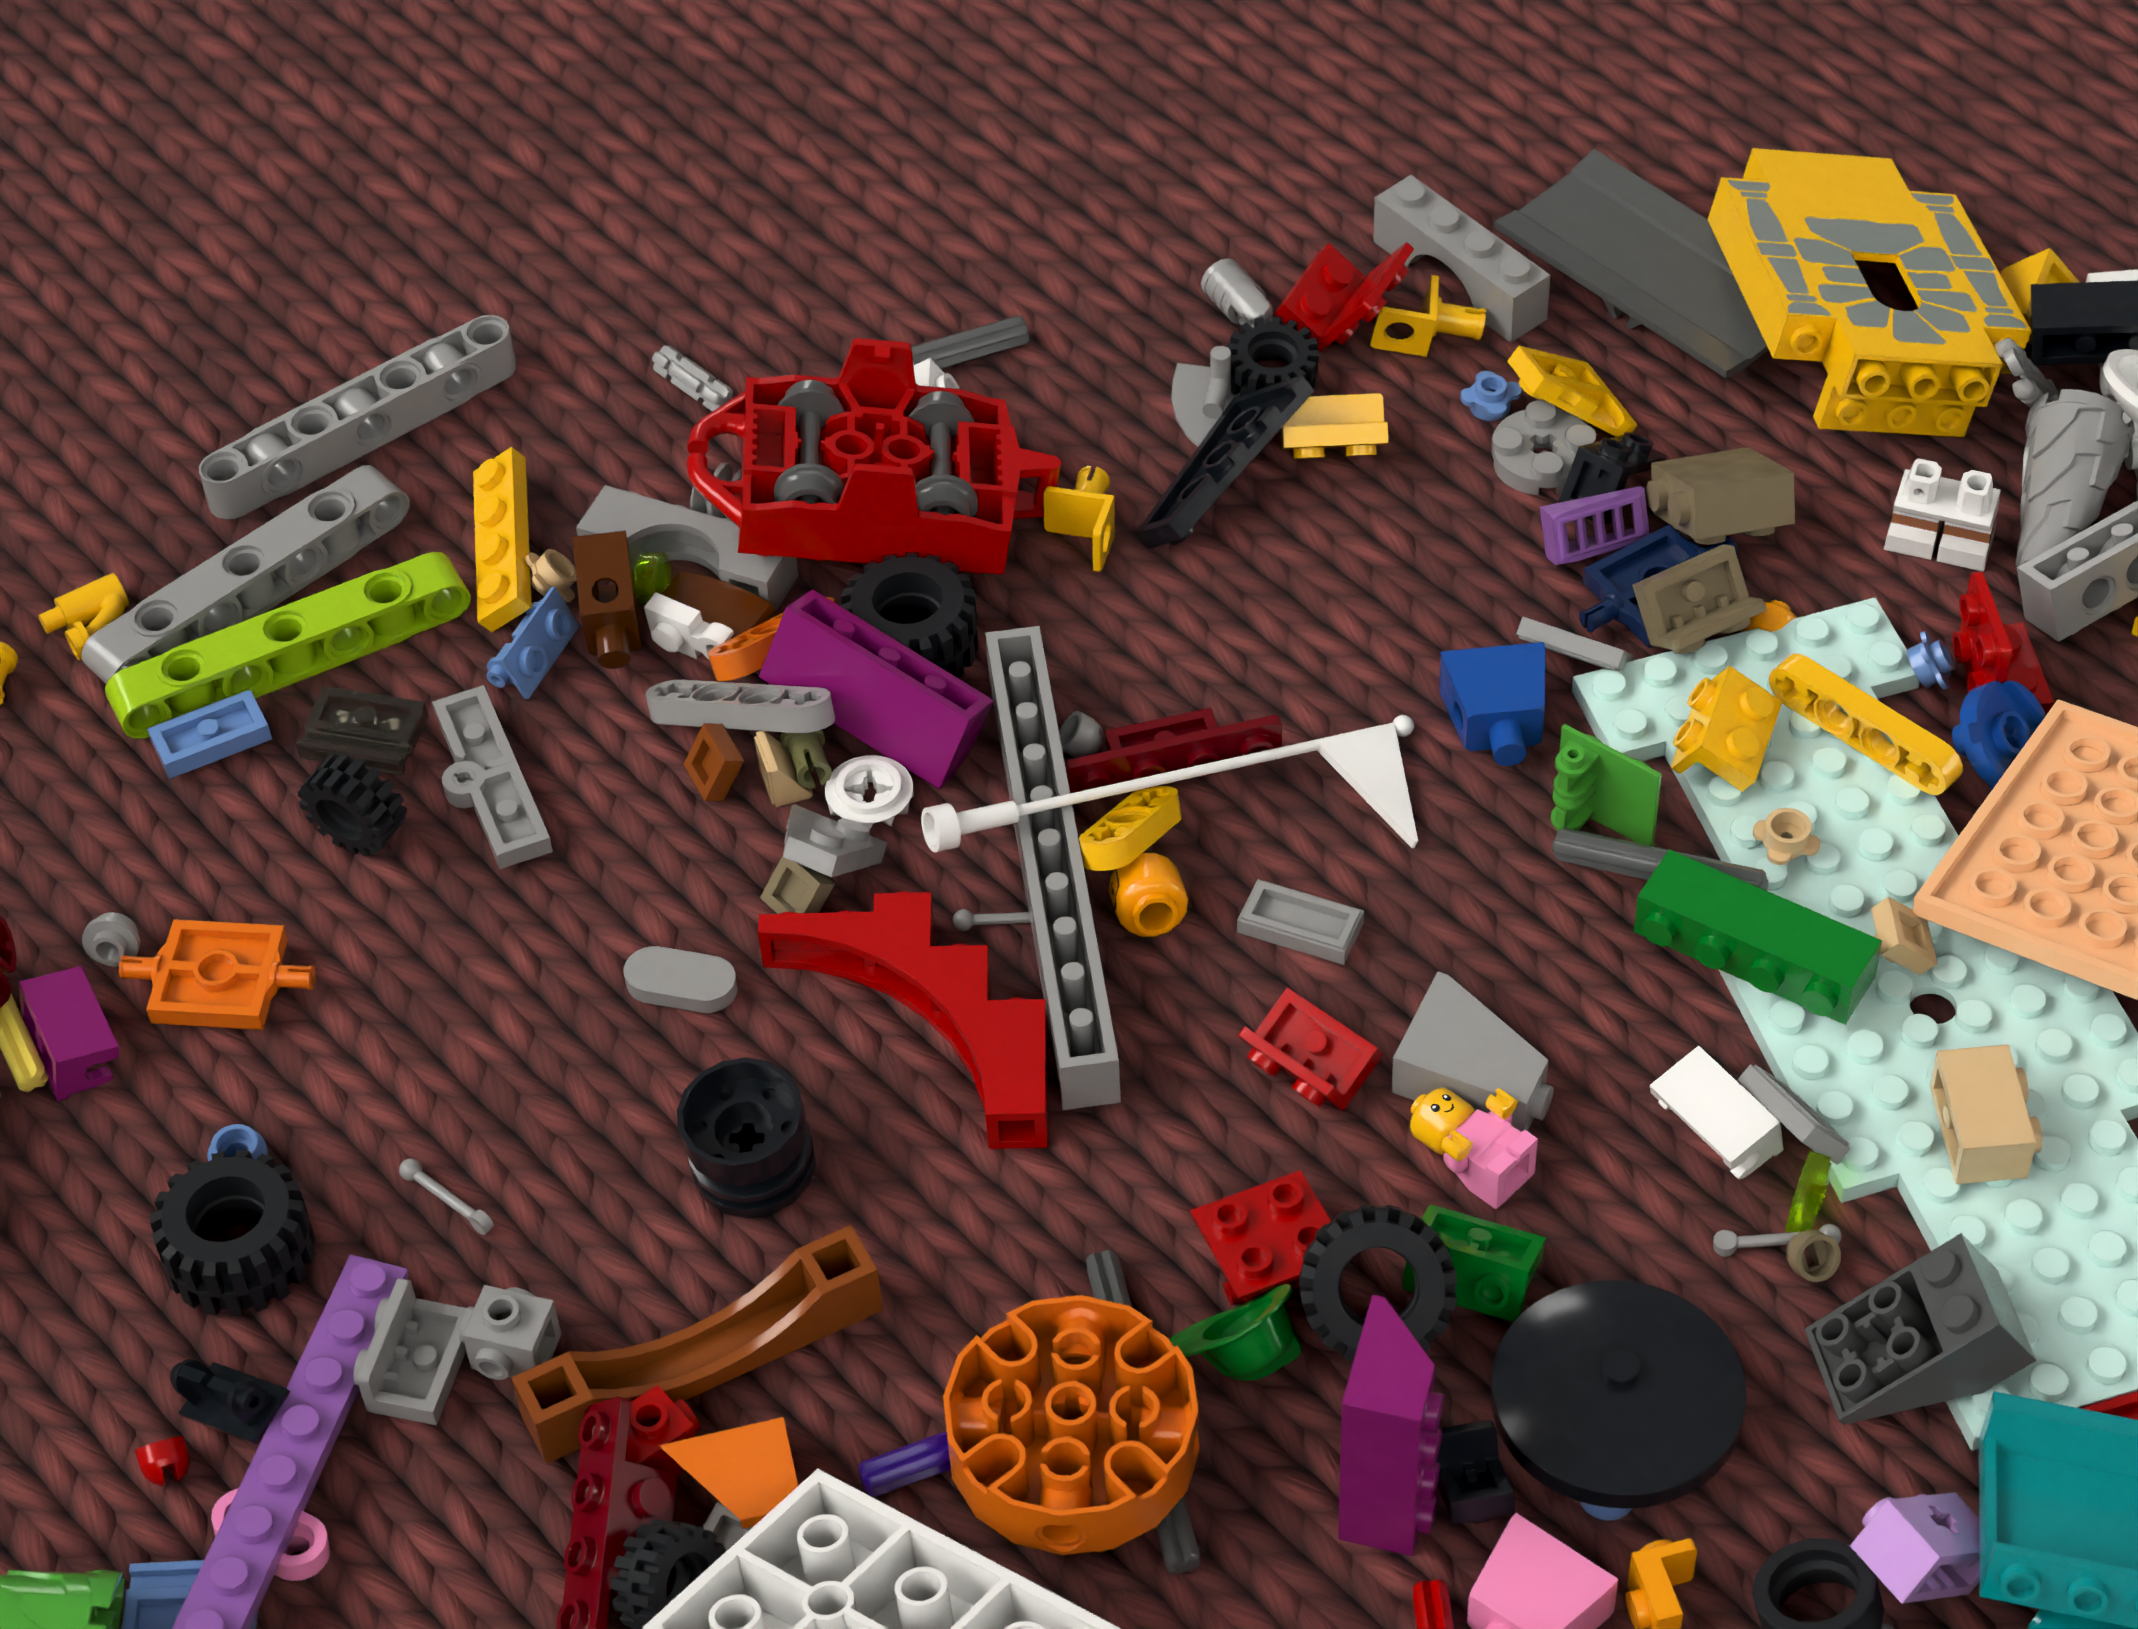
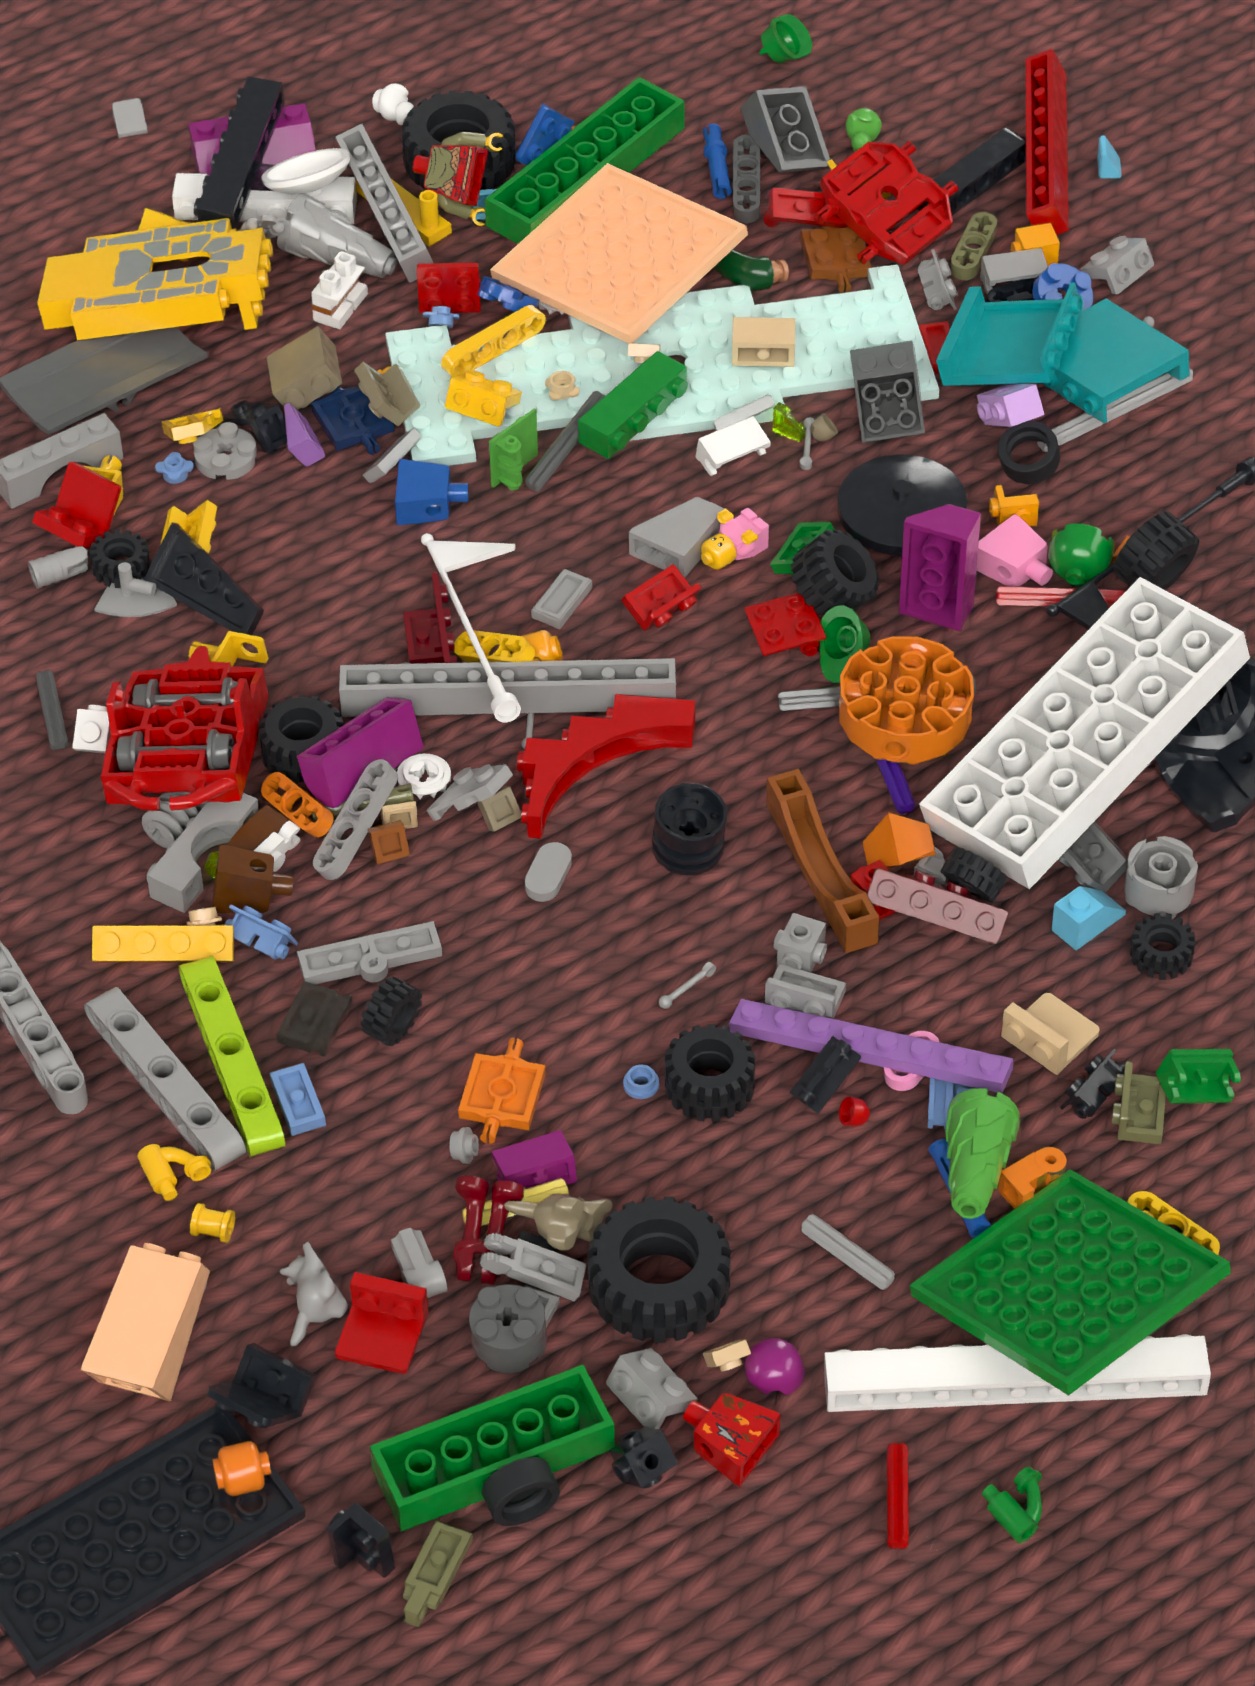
camera: 85 degrees left, 0 degrees up
(691, 378) = (37, 844): light grey axle -> none

